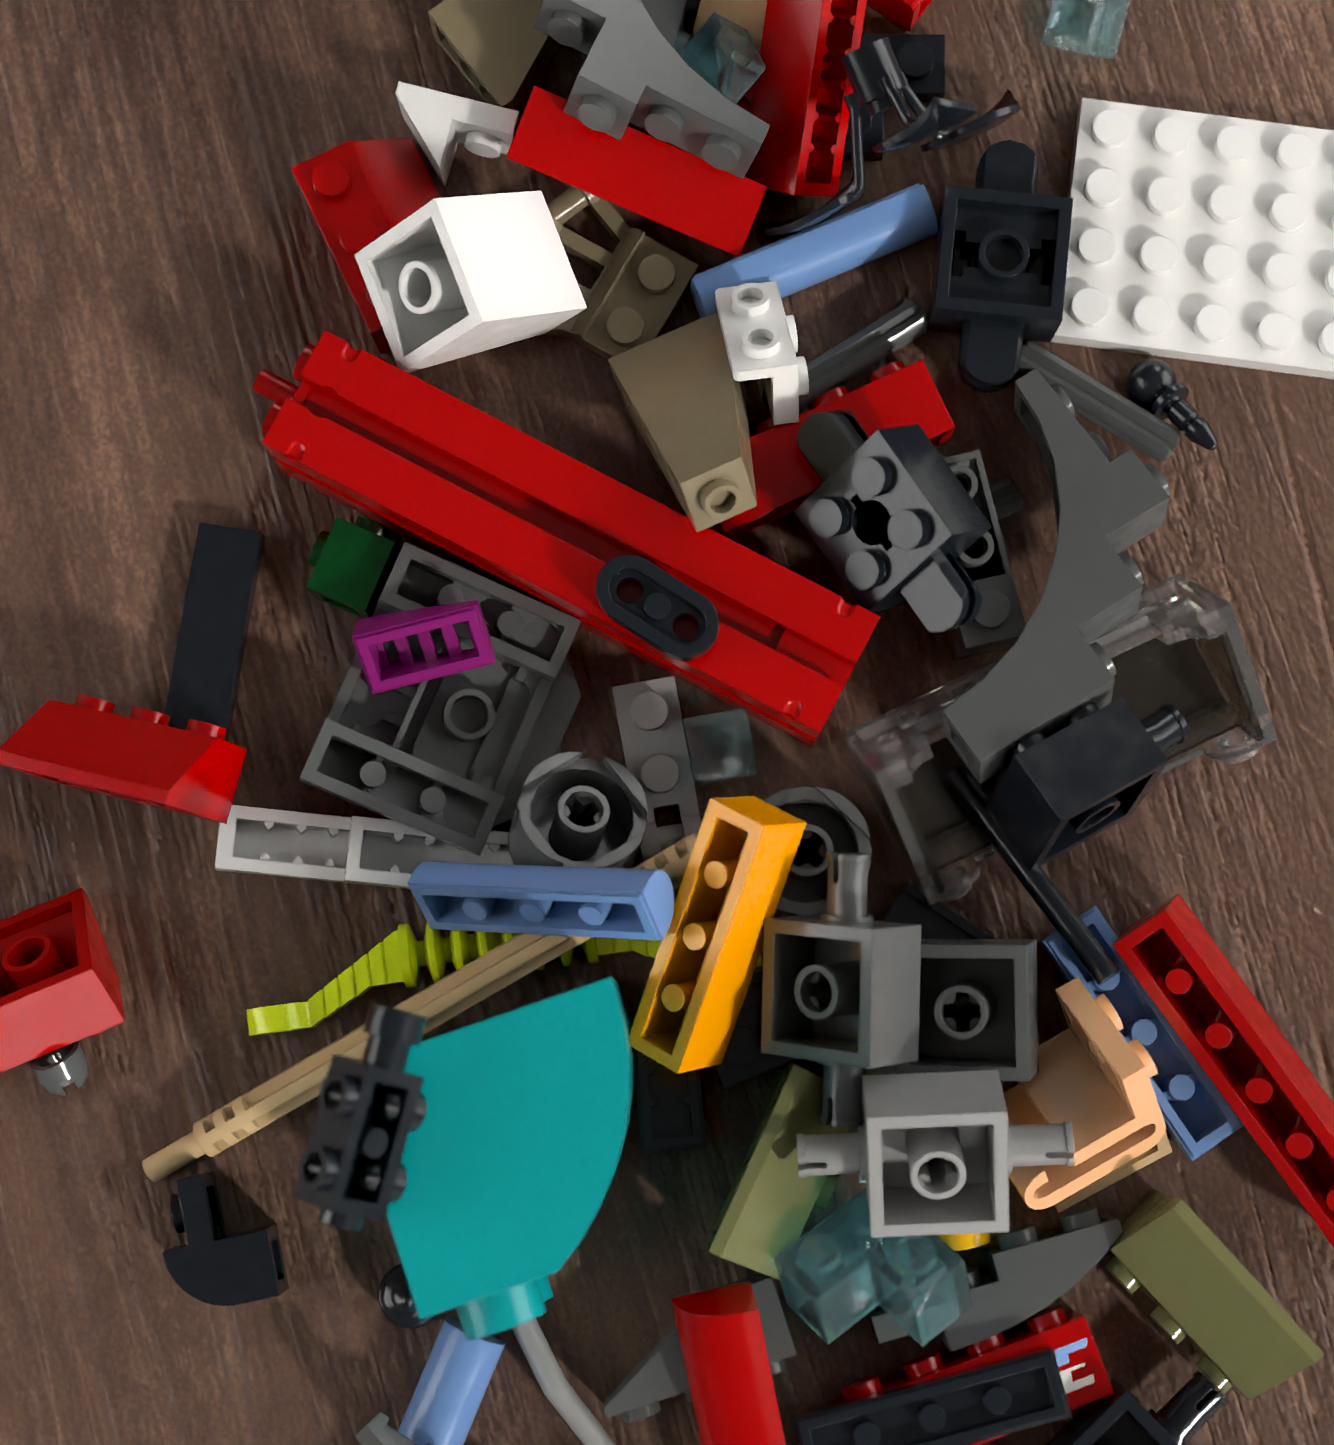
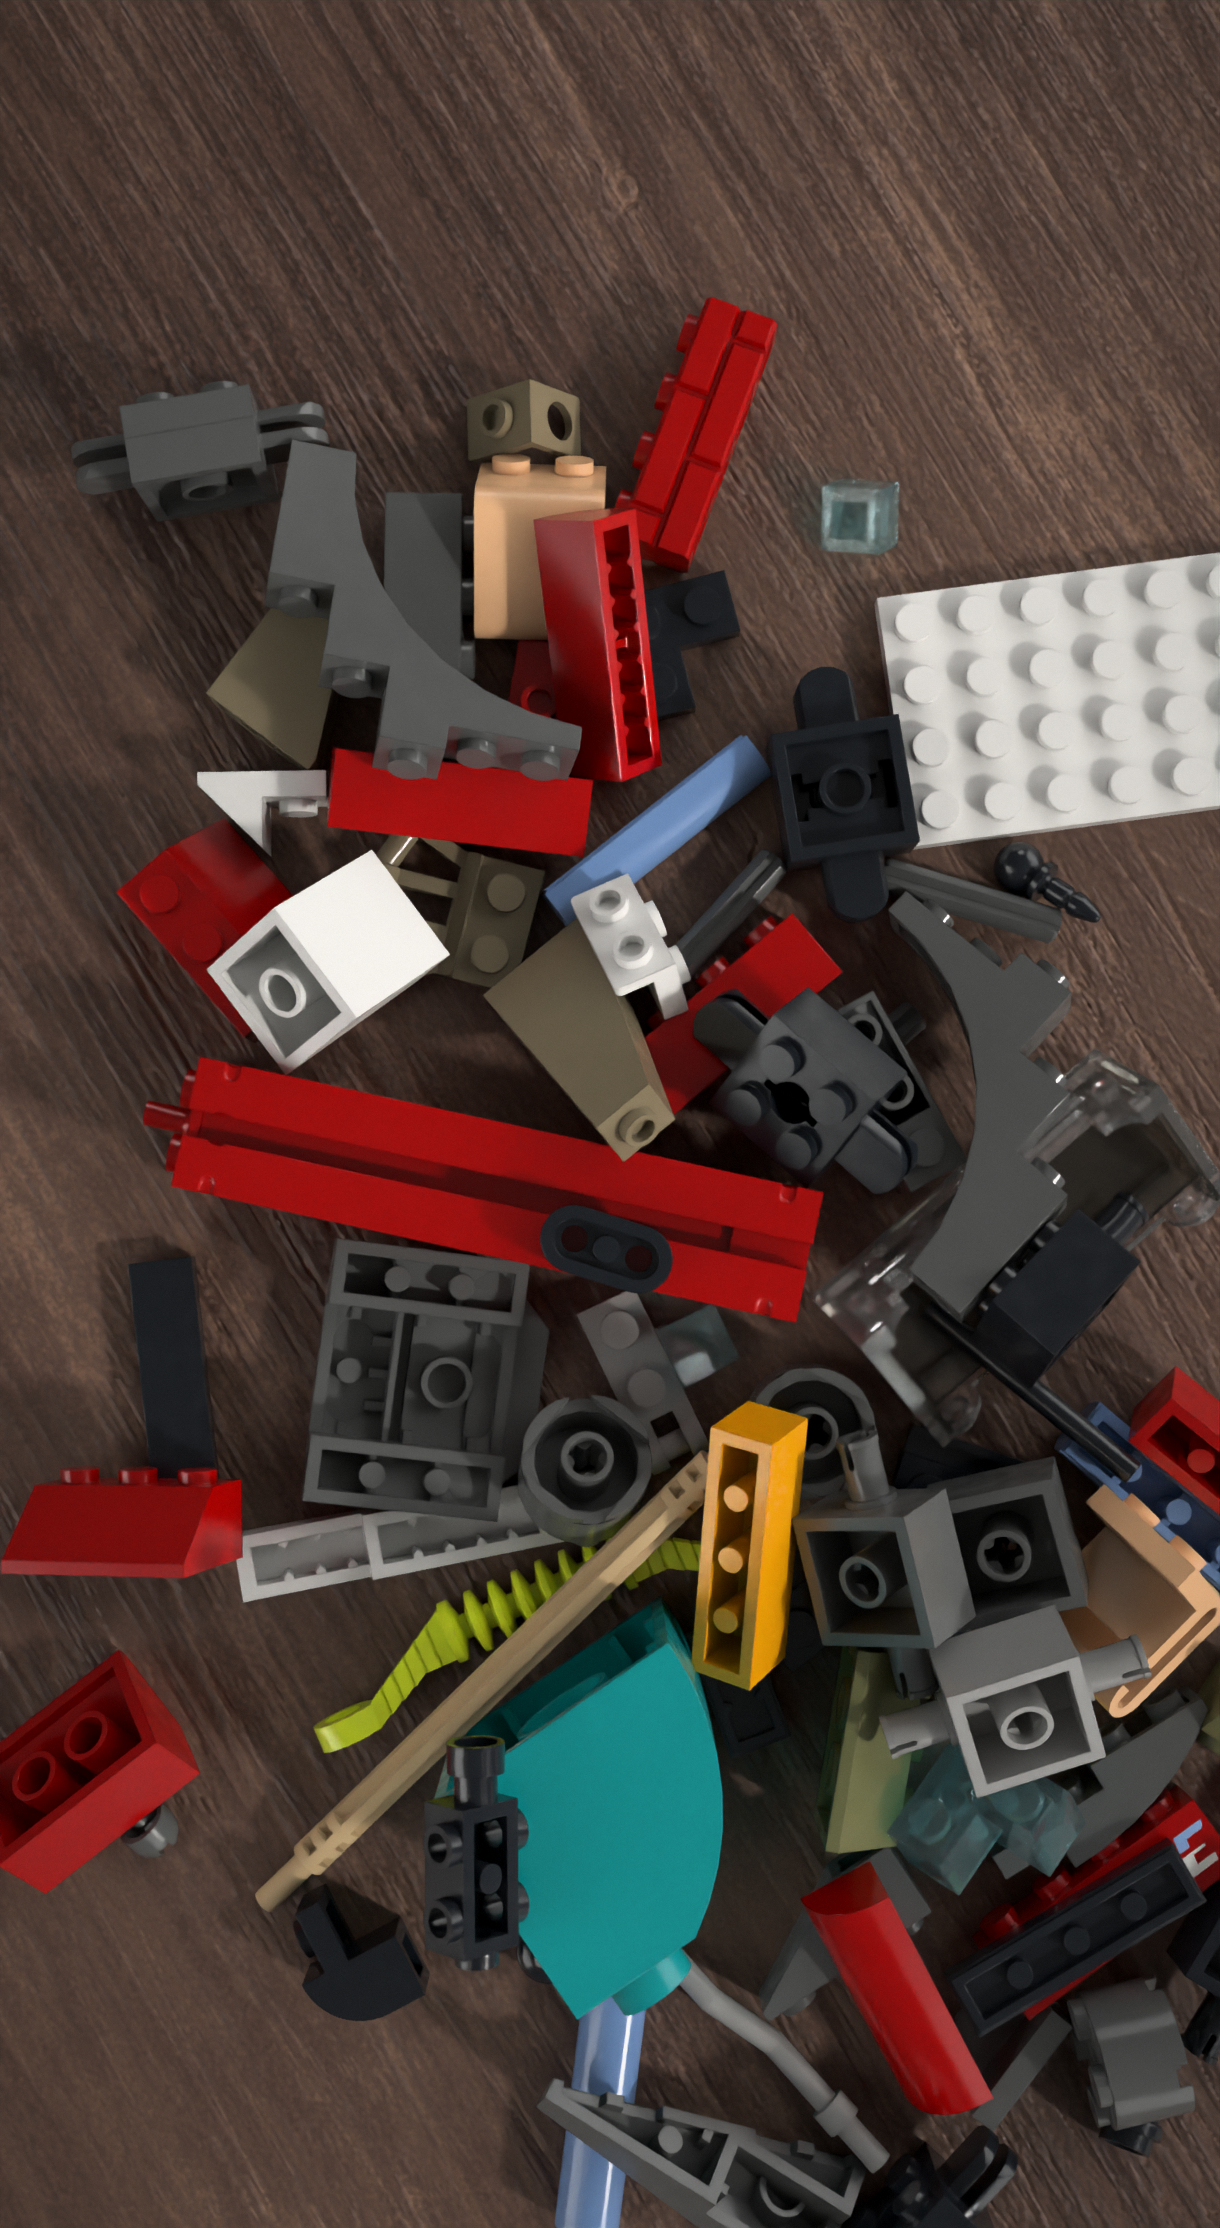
camera: 20 degrees left, 5 degrees up
(352, 565) = (291, 1266): dark green brick -> none
(389, 674) = (360, 1368): magenta slope -> none
(545, 899) = (575, 1557): medium blue brick -> none
(724, 57) = (513, 663): clear light blue slope -> none
(881, 86) = (681, 658): black plant -> none

